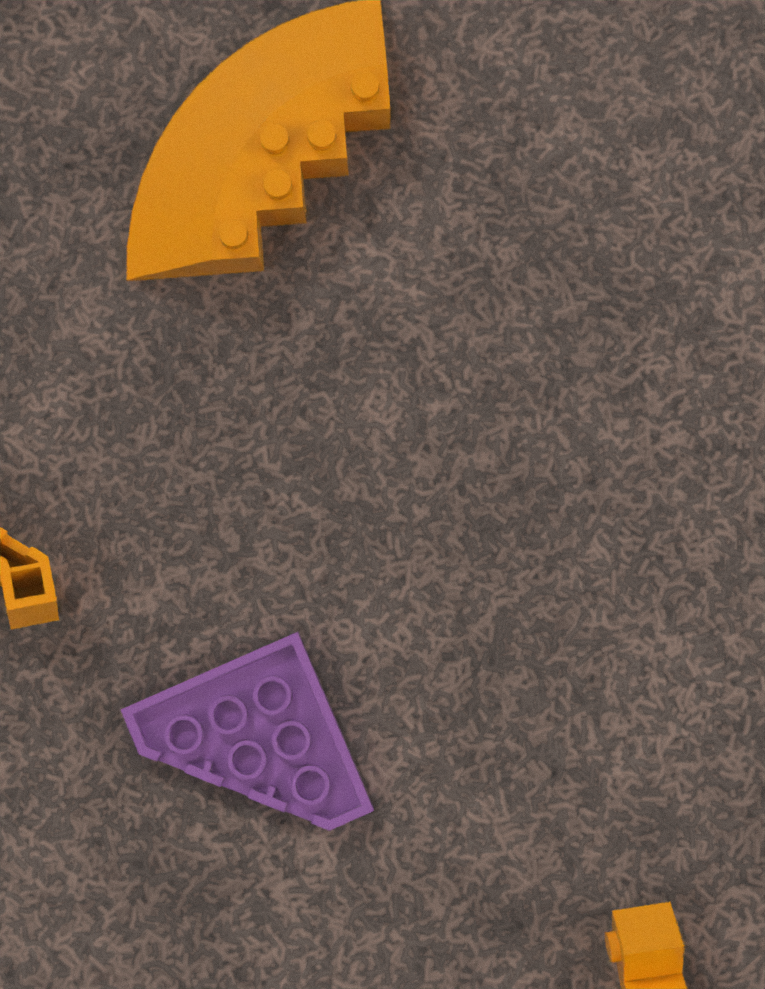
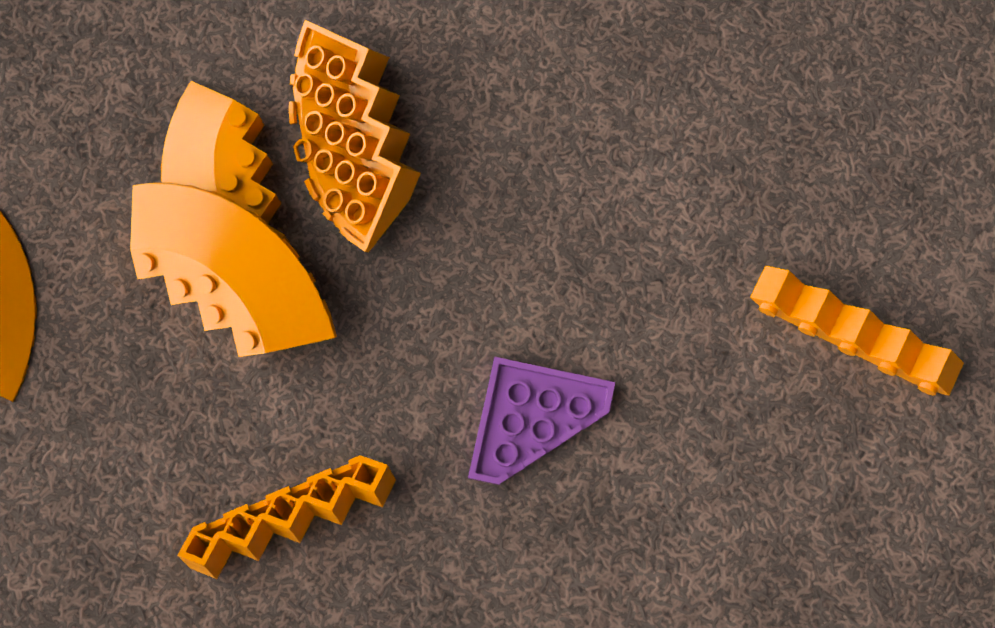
camera: 55 degrees left, 5 degrees down
(165, 219) = (227, 264): none -> light orange brick
(450, 241) = (348, 135): none -> light orange brick

